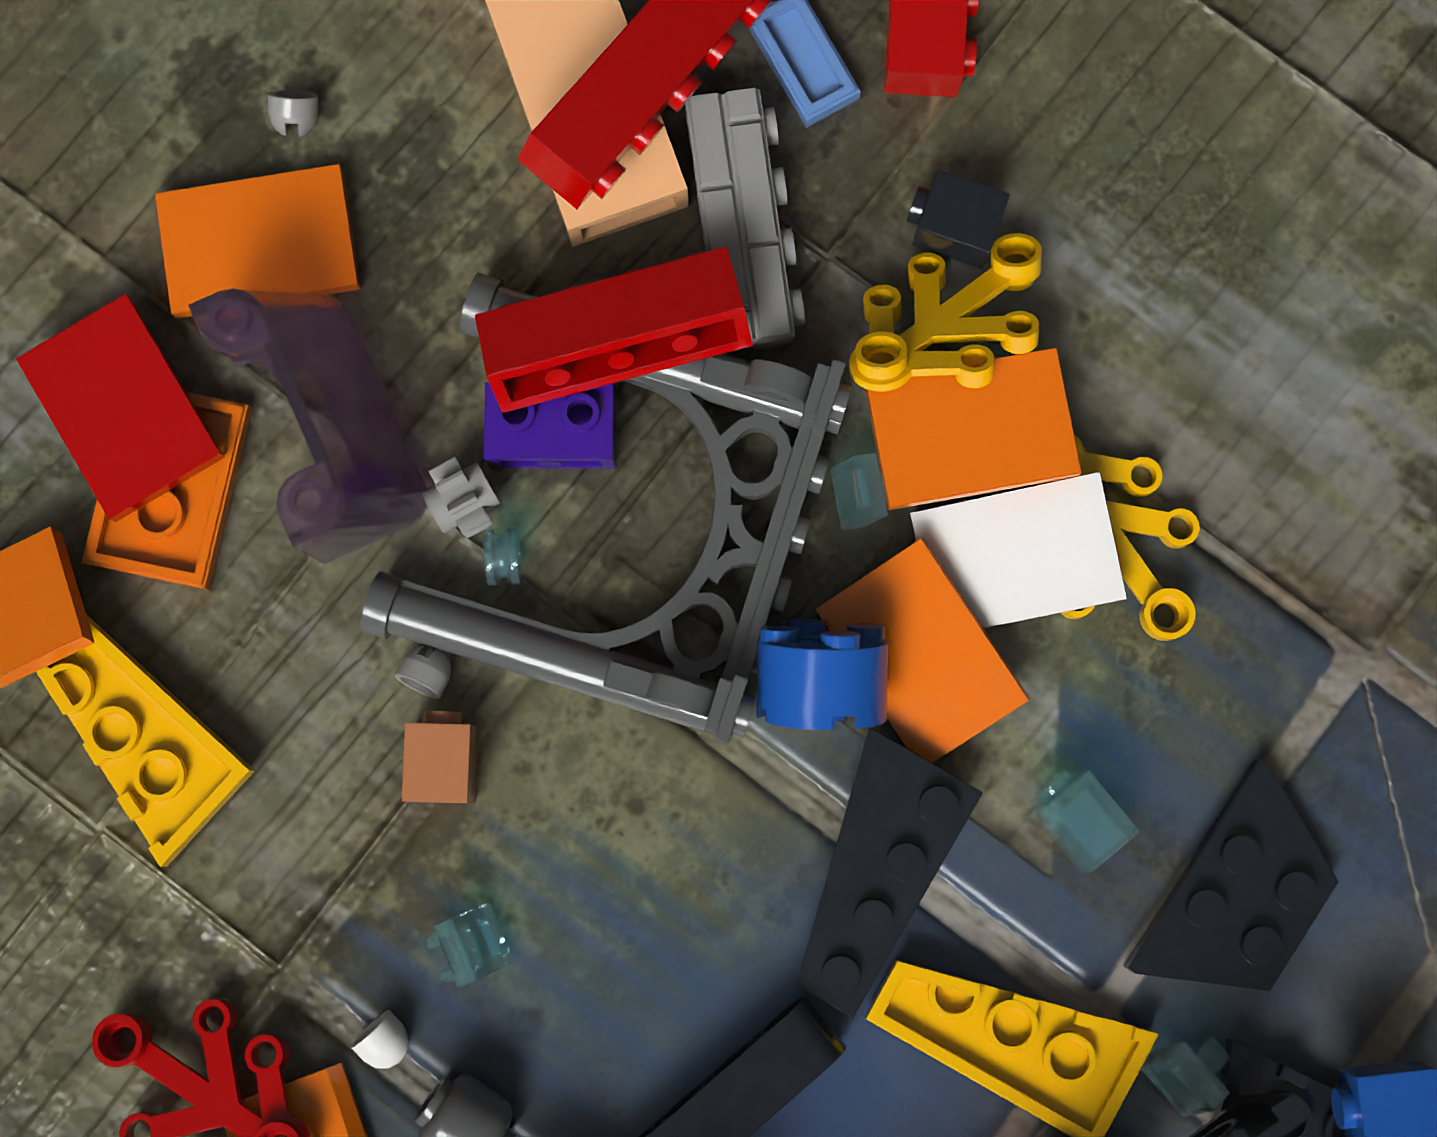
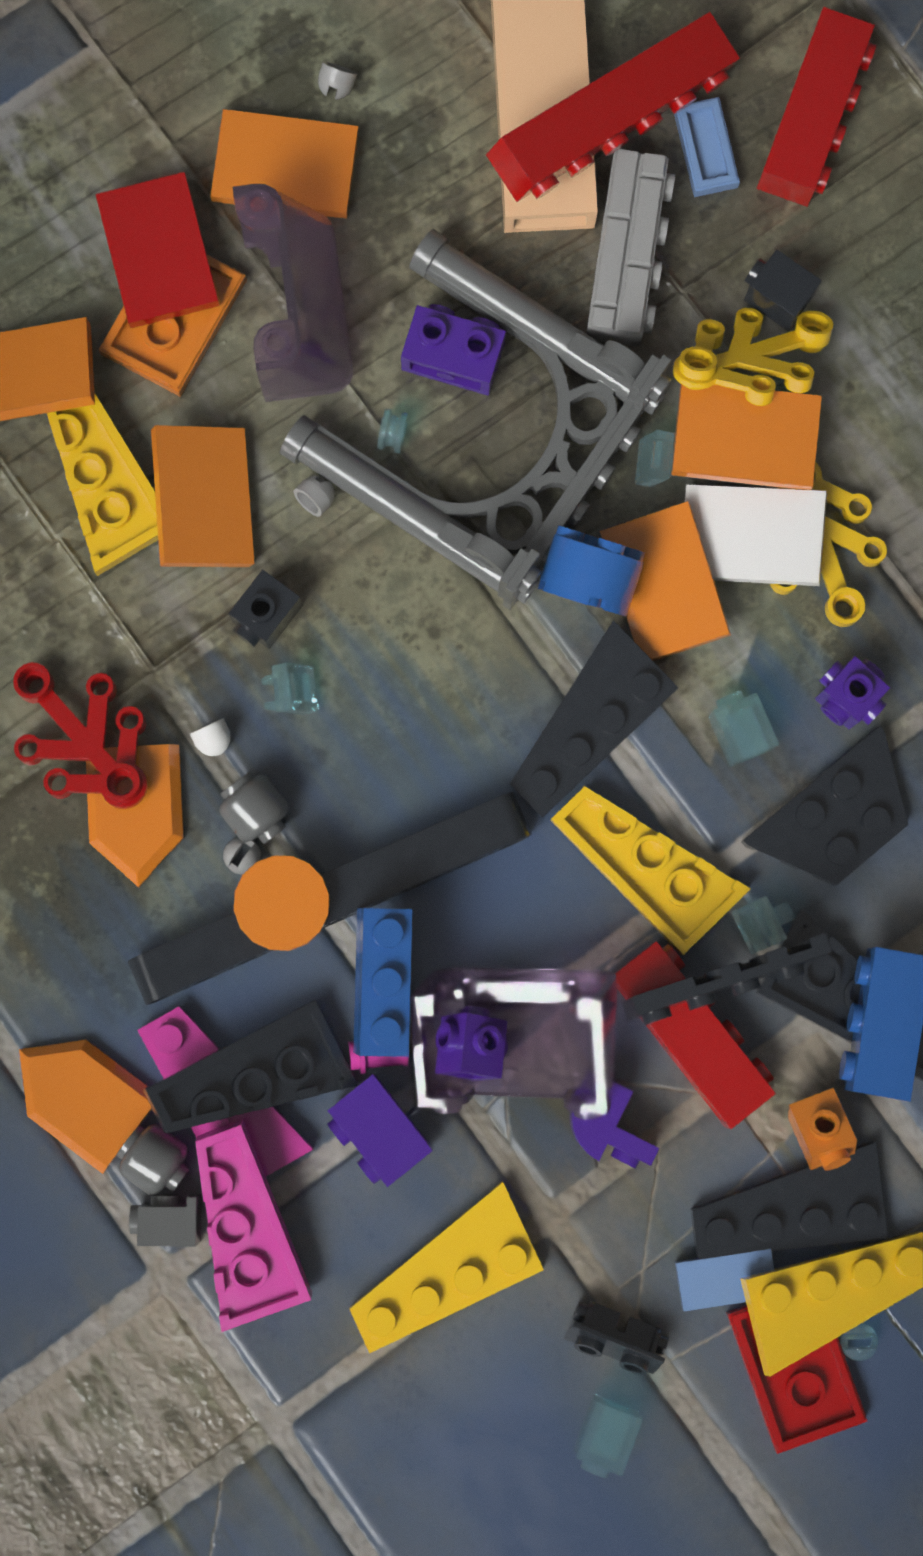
camera: 10 degrees right, 0 degrees up
(274, 721) = (202, 496): none -> orange tile
(401, 851) = (264, 611): none -> black brick
(440, 759) = (308, 557): nougat brick -> none
(460, 497) = (376, 381): light grey gear -> none
(613, 329) = (517, 292): red brick -> none
(1192, 735) = (840, 704): none -> dark purple brick

